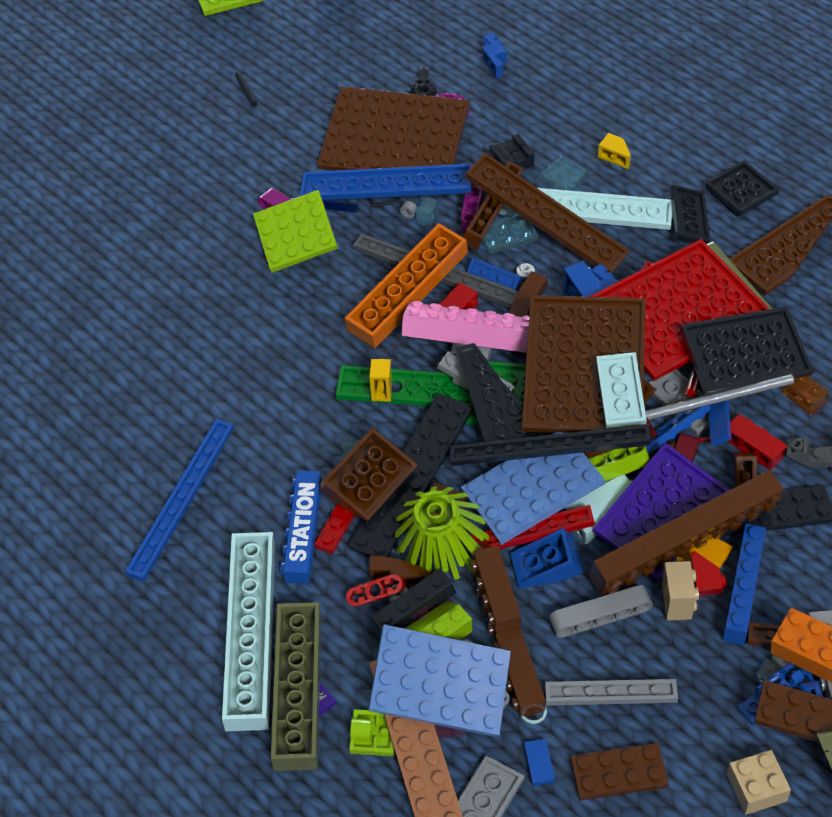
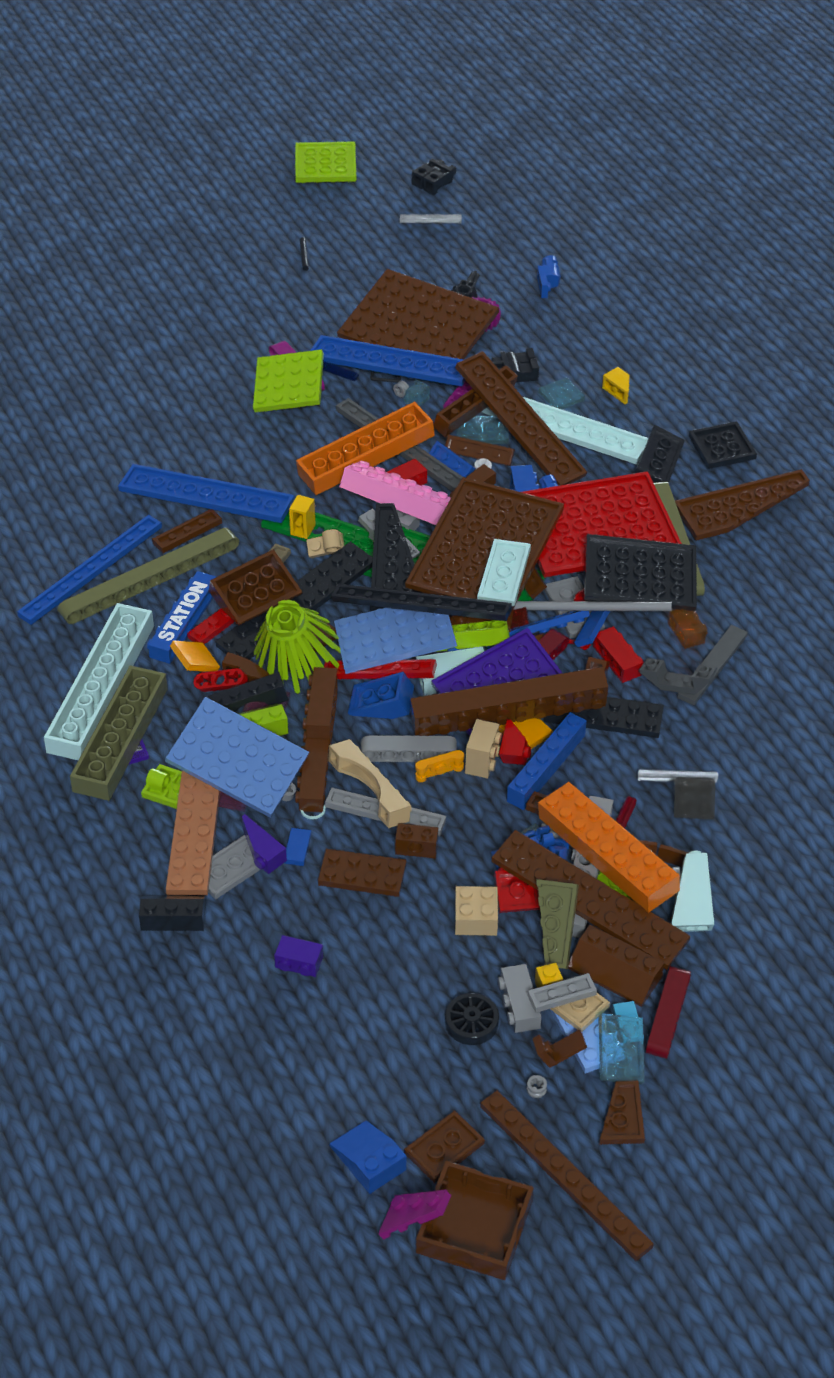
camera: 15 degrees right, 5 degrees down
(243, 490) = (147, 575): none -> olive beam
(263, 425) = (187, 531): none -> reddish brown plate
(266, 378) = (207, 493): none -> blue plate
(336, 570) = (194, 656): none -> light orange tile
(353, 21) = (427, 218): none -> light grey axle
(365, 423) = (282, 552): none -> dark tan tile
(413, 402) = (327, 544): none -> tan plate
(511, 779) = (265, 849): none -> dark purple slope
(516, 255) = (480, 450): none -> reddish brown tile
(549, 644) = (351, 761): none -> tan arch
(641, 621) = (439, 765): none -> light orange plate
(660, 718) = (416, 840): none -> reddish brown brick
(787, 748) = (514, 893): none -> red plate

